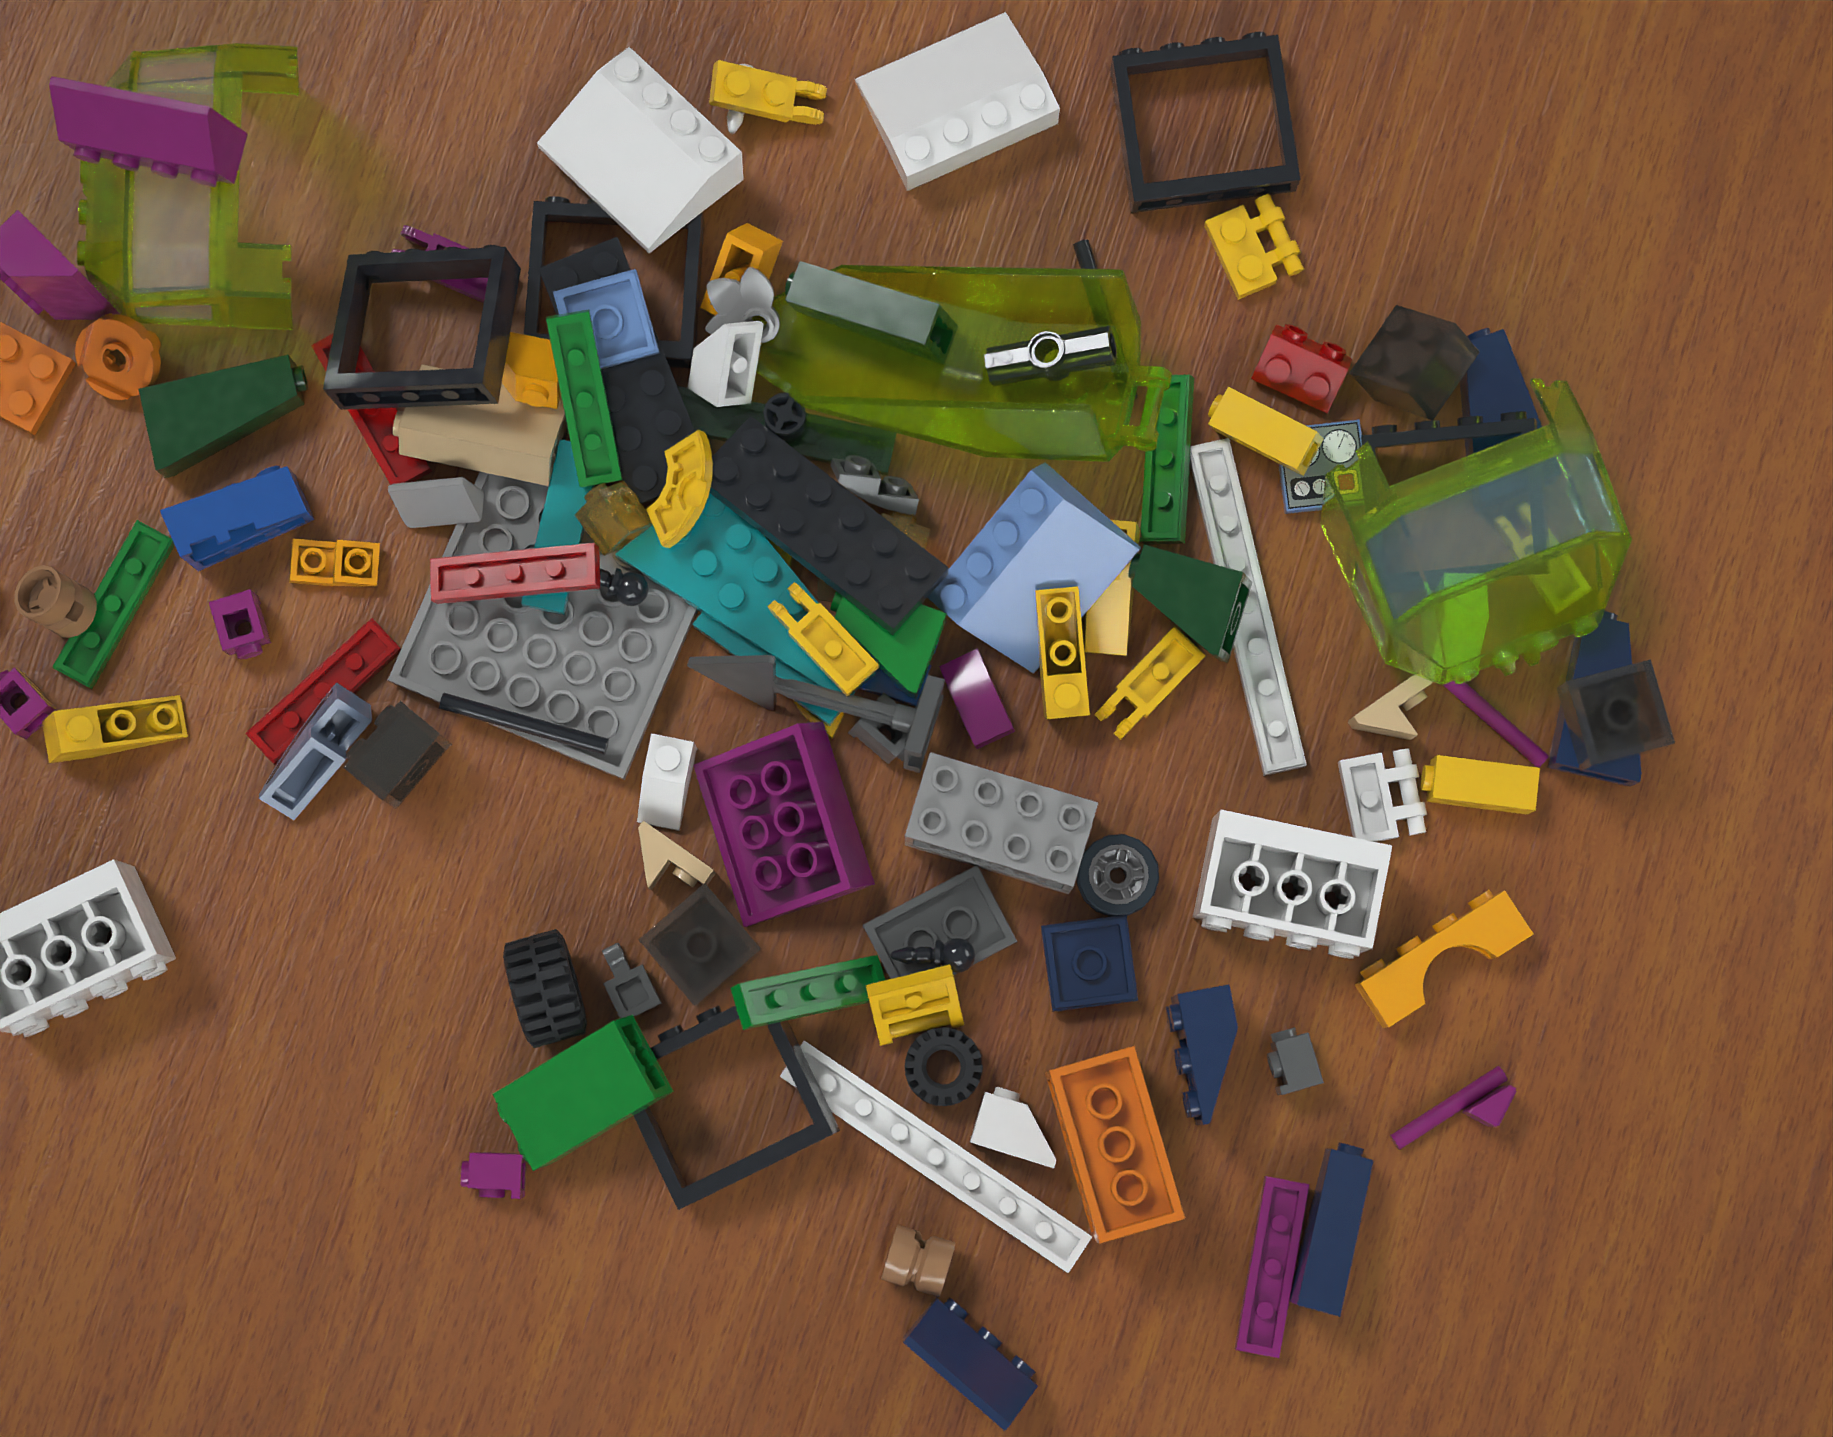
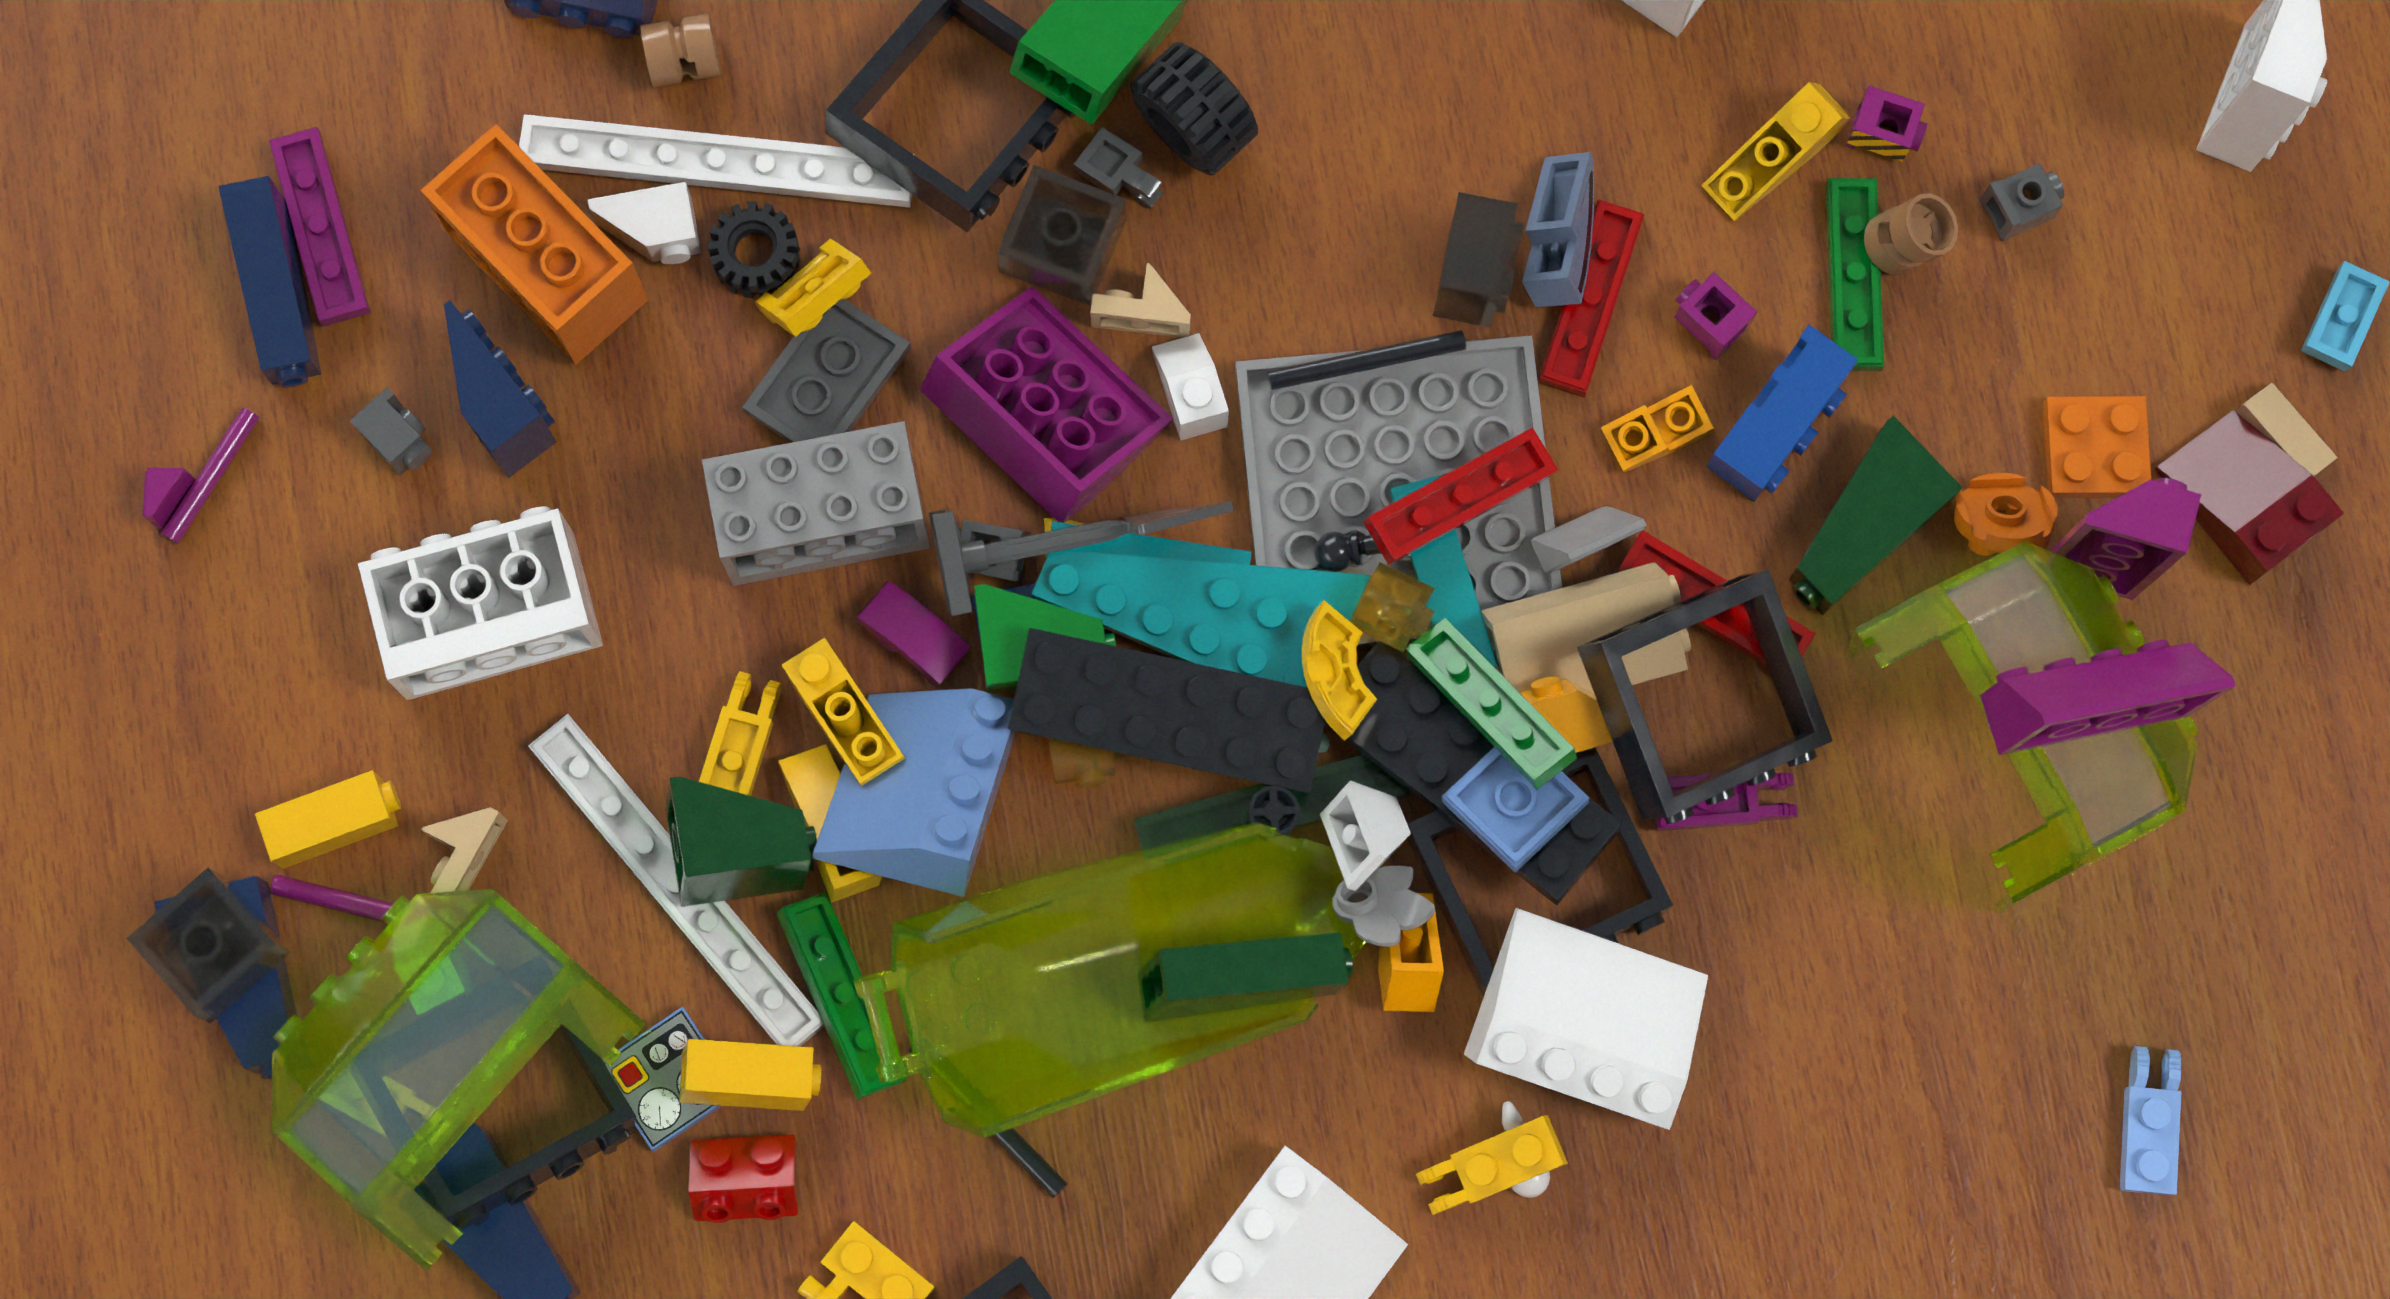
camera: 150 degrees right, 5 degrees down
(805, 992) = (925, 235): green plate -> none
(826, 642) = (1097, 588): yellow hinge -> none
(863, 480) = (1156, 786): dark grey slope -> none
(955, 952) = (797, 354): black bar -> none
(1076, 353) = (997, 1044): black piece -> none
(1089, 963) = (656, 426): dark blue plate -> none
(1139, 869) = (653, 511): wheel -> none
(1370, 800) = (441, 742): white plate -> none
(1397, 988) = (255, 671): light orange arch -> none
(1414, 362) = (617, 1234): clear smoke brick -> none

